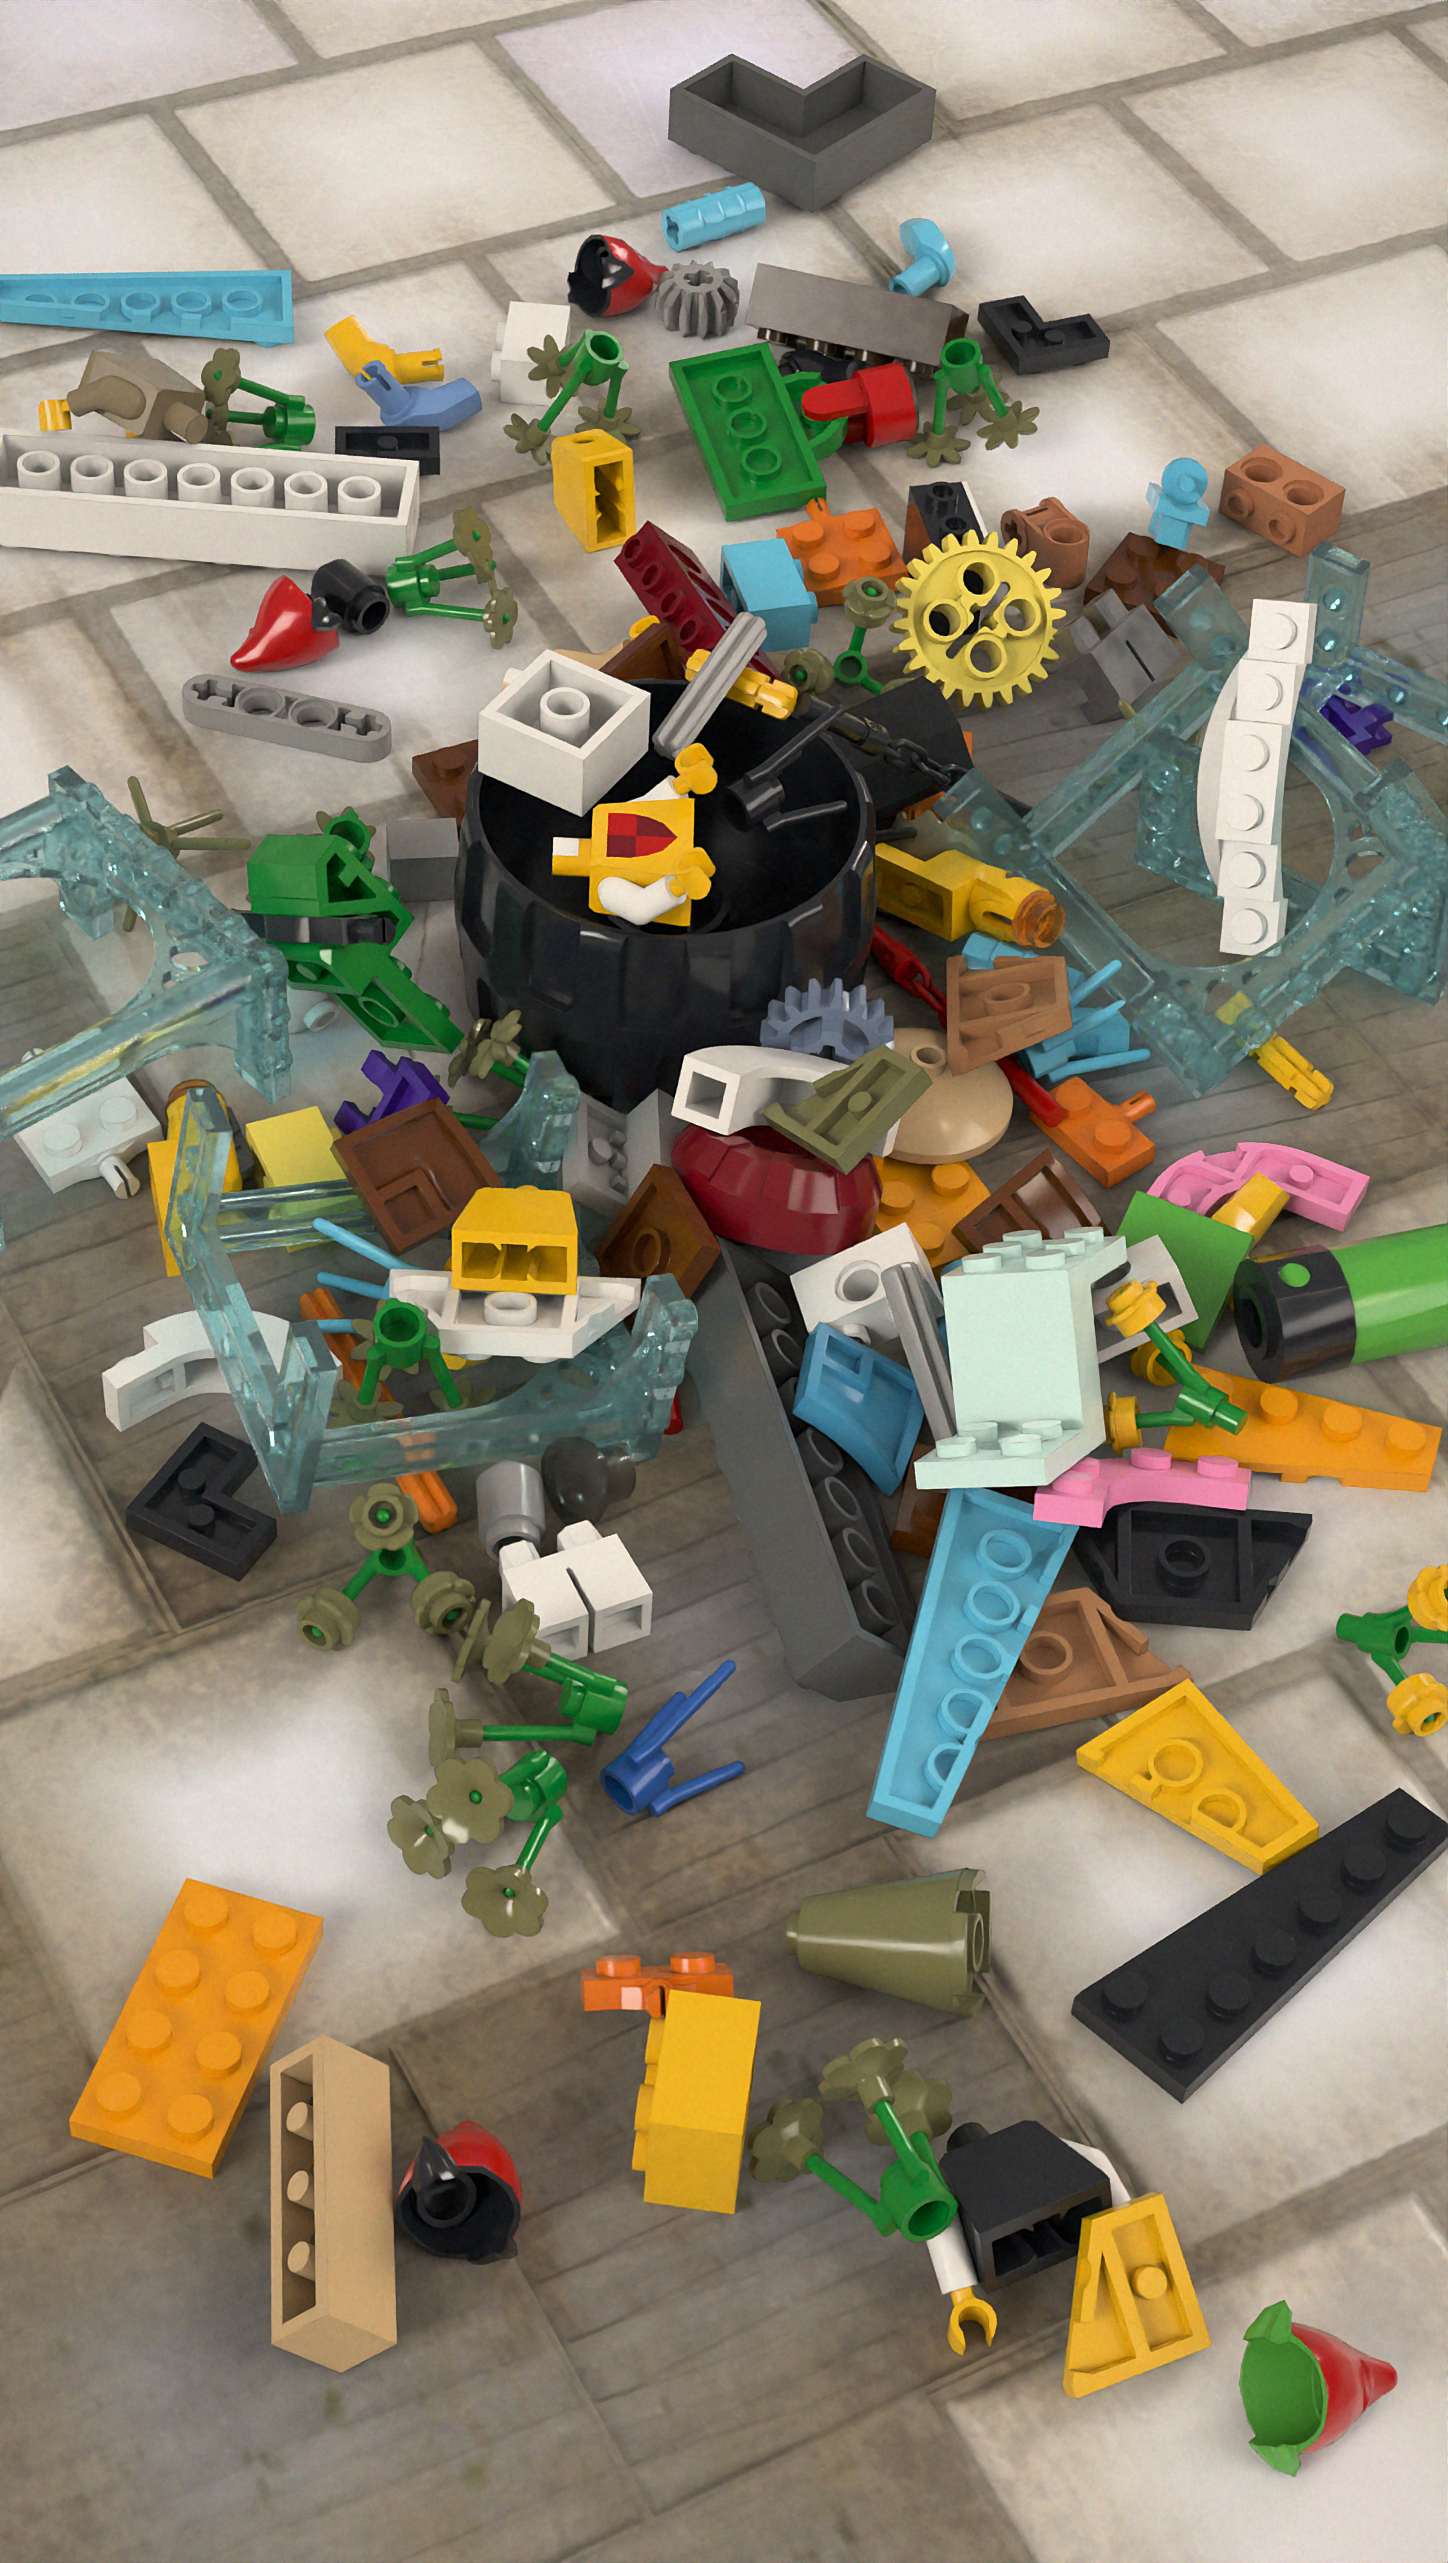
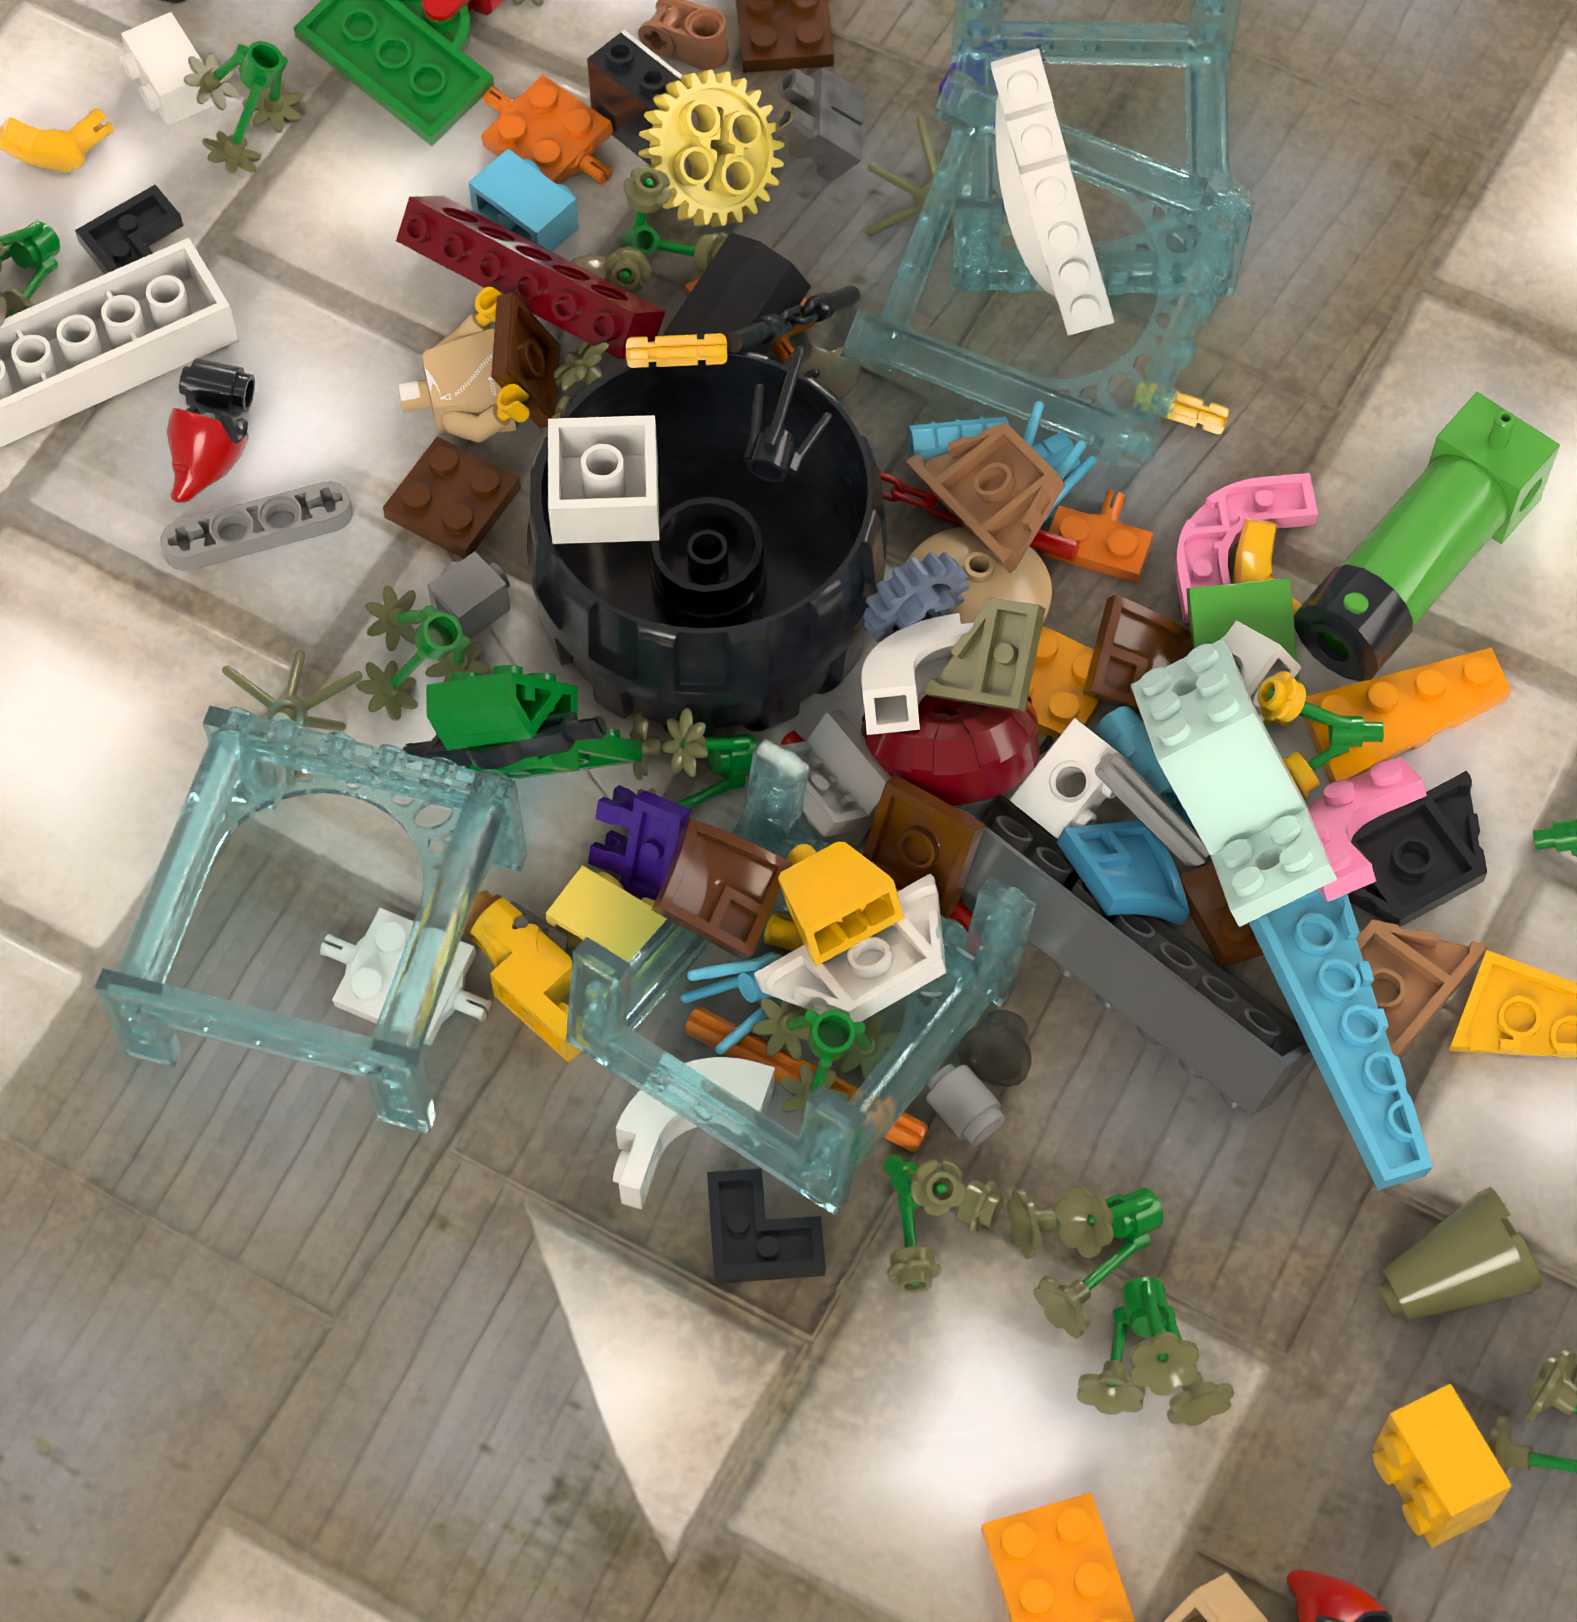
camera: 30 degrees left, 15 degrees up
(414, 583) = (257, 343): plant -> none
(417, 405) = (121, 173): medium blue arm -> none
(581, 1593) = (1062, 1145): white hips -> none
(591, 474) = (323, 176): yellow torso -> none
(625, 1984) = (1338, 1399): orange plate -> none
(642, 1770) = (1203, 1249): blue plant -> none
(644, 850) = (740, 552): torso -> none
(710, 685) = (667, 370): light grey axle -> none
(962, 894) = (905, 393): yellow plate -> none

